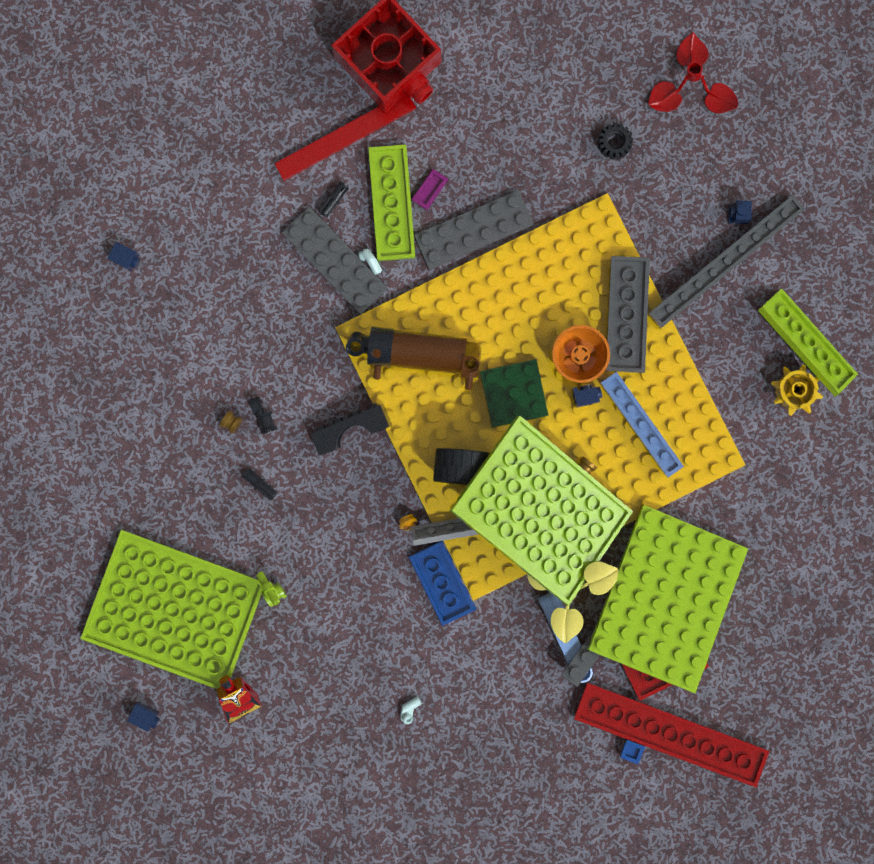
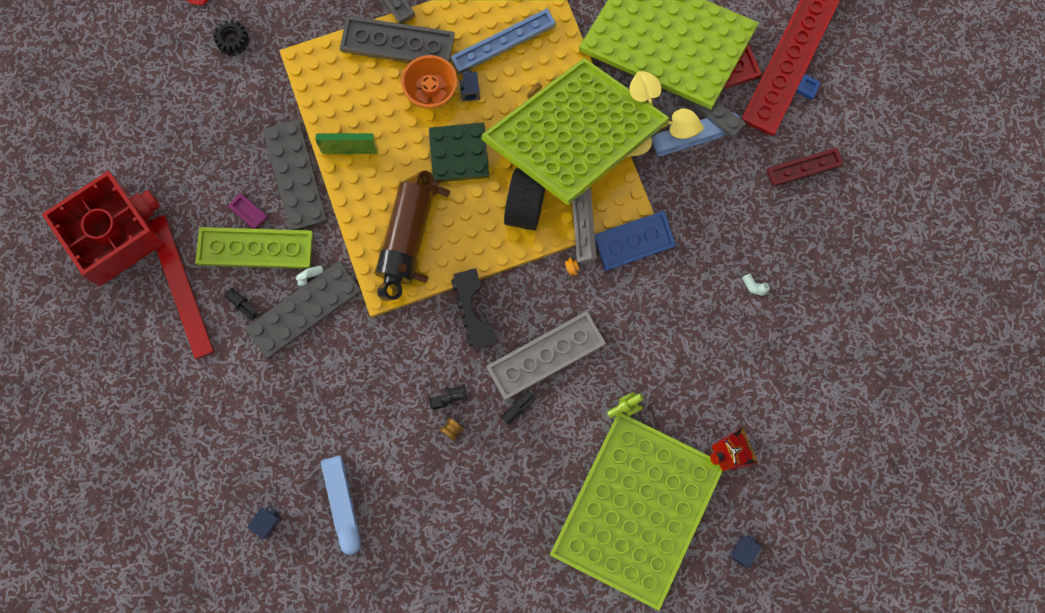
camera: 85 degrees left, 10 degrees down
(149, 326) = (341, 504): none -> light blue piece
(314, 505) = (545, 355): none -> light grey plate
(505, 279) = (346, 143): none -> green tile
(542, 753) = (804, 167): none -> dark red plate

